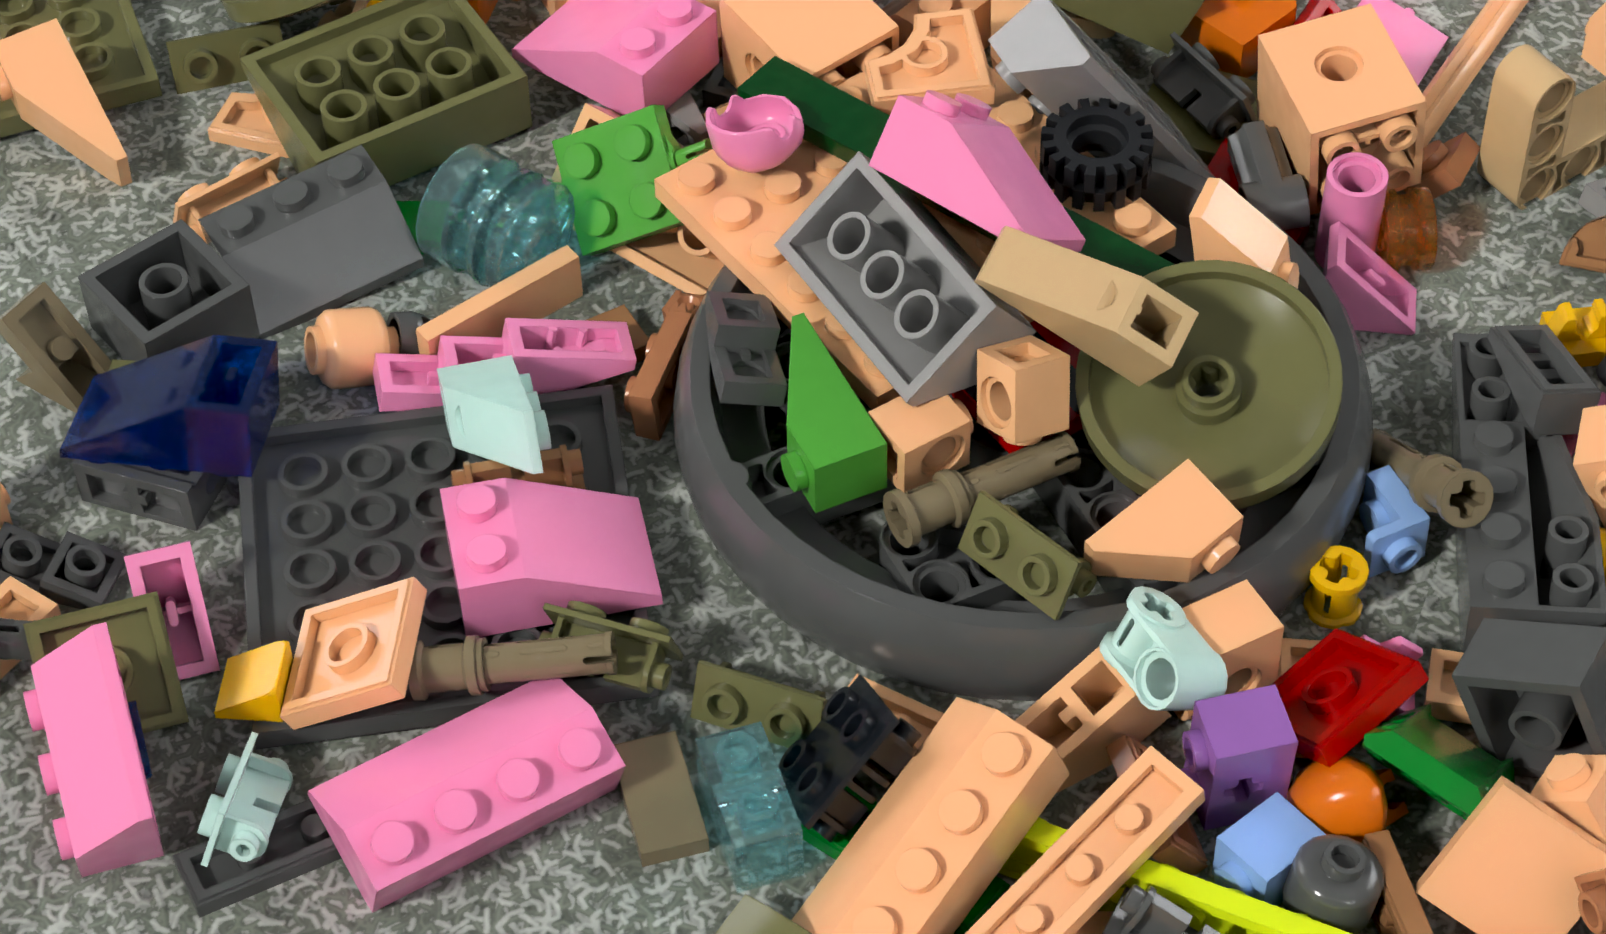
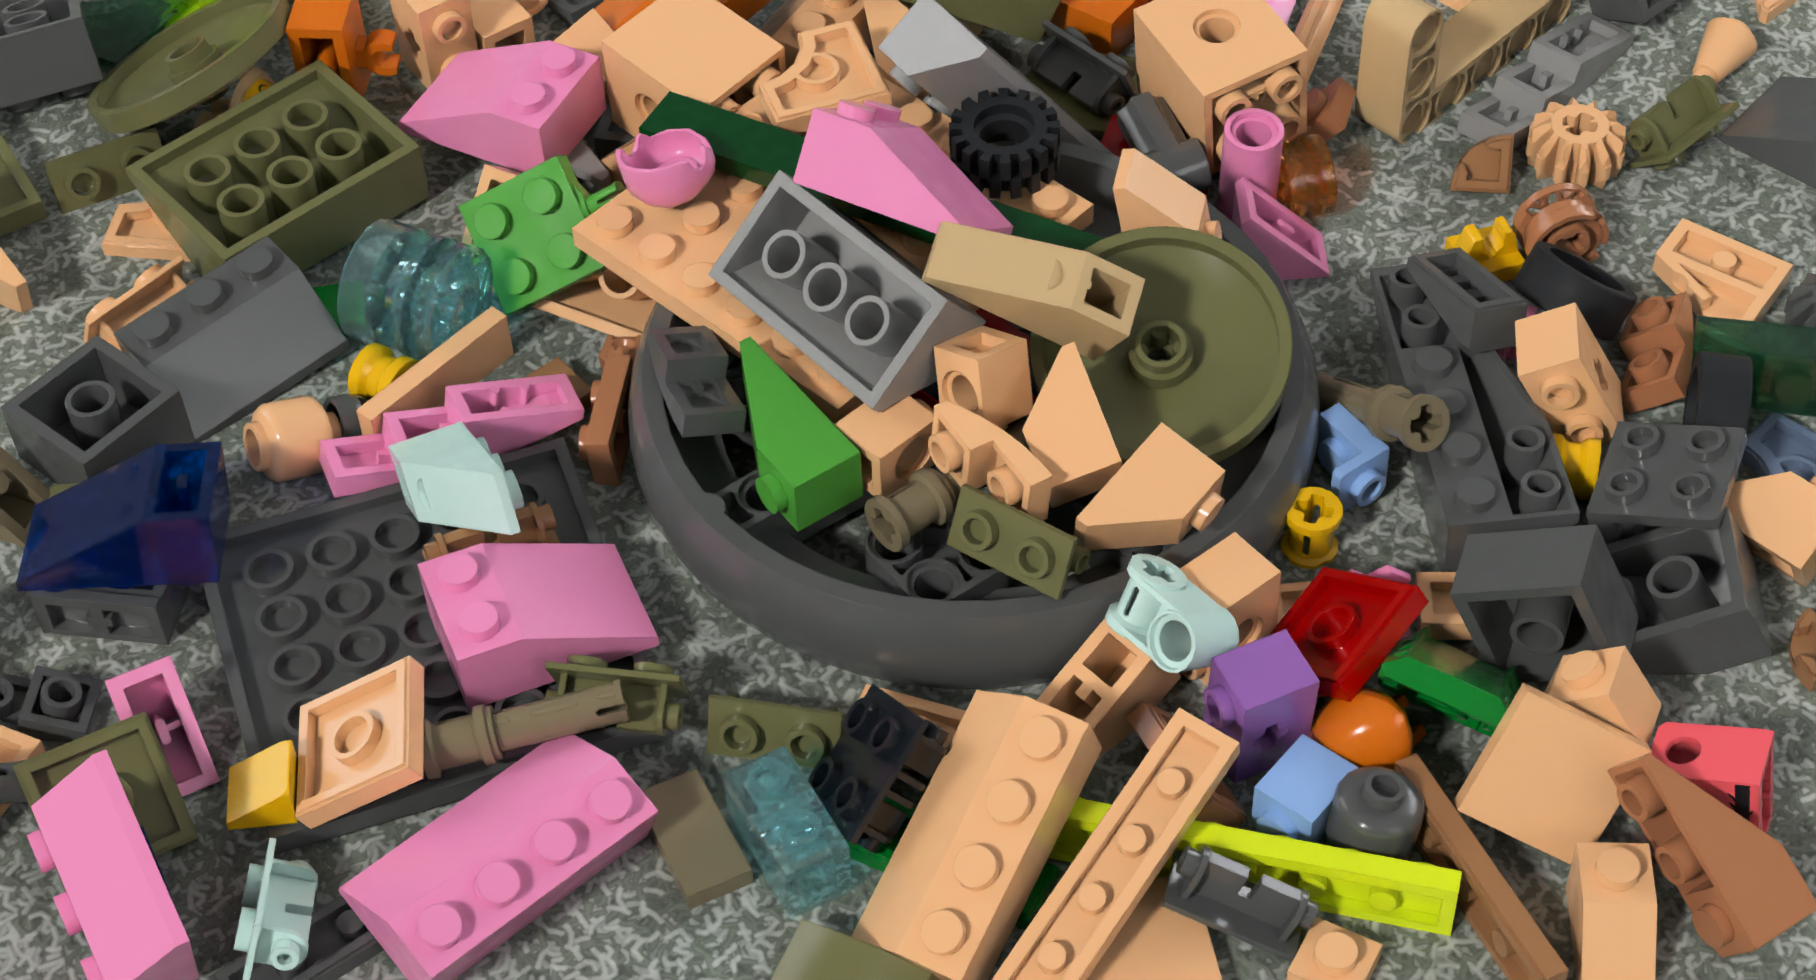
camera: 10 degrees left, 0 degrees up
(443, 290) = (376, 369): none -> yellow wheel
(1010, 467) = (985, 454): none -> light nougat slope
(1095, 456) = (1071, 432): none -> light nougat slope

